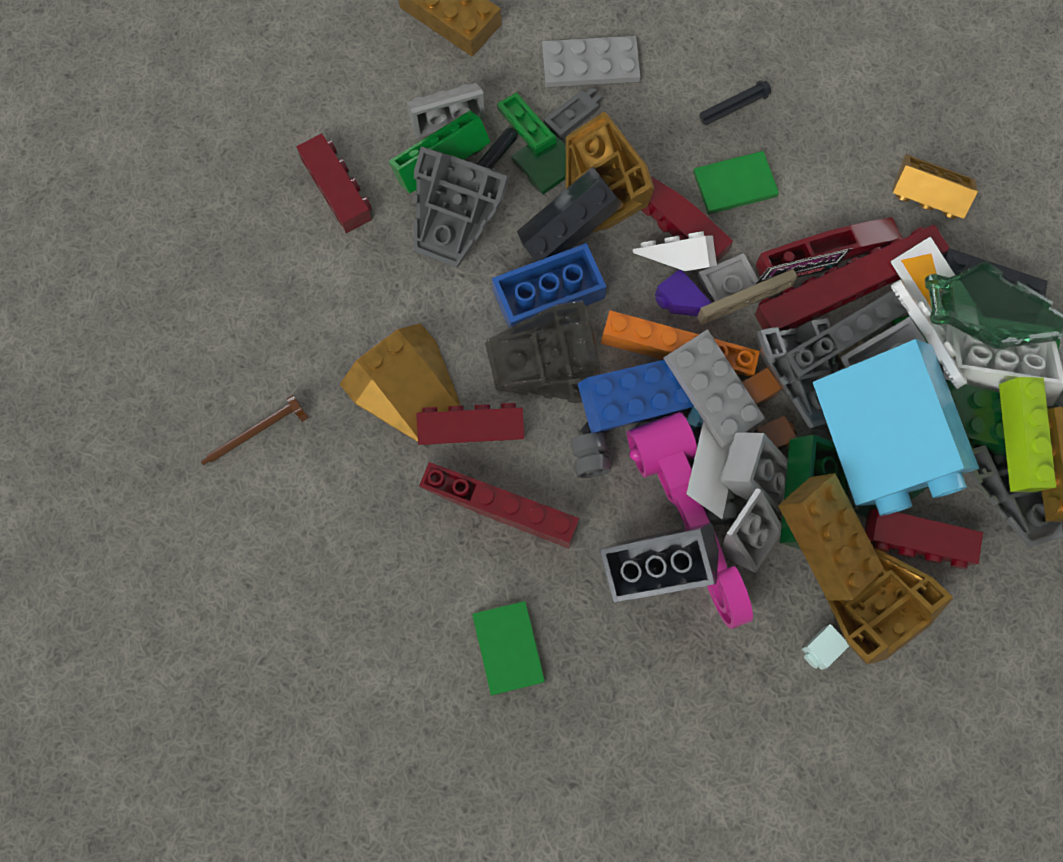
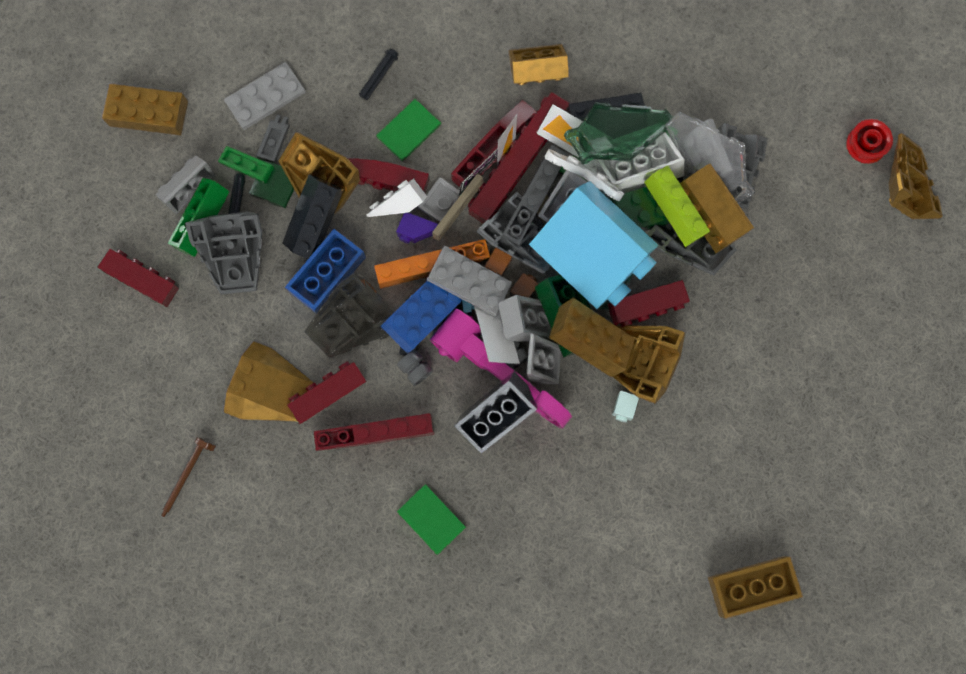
camera: 30 degrees left, 5 degrees up
(852, 246) = (506, 139): none -> white sticker

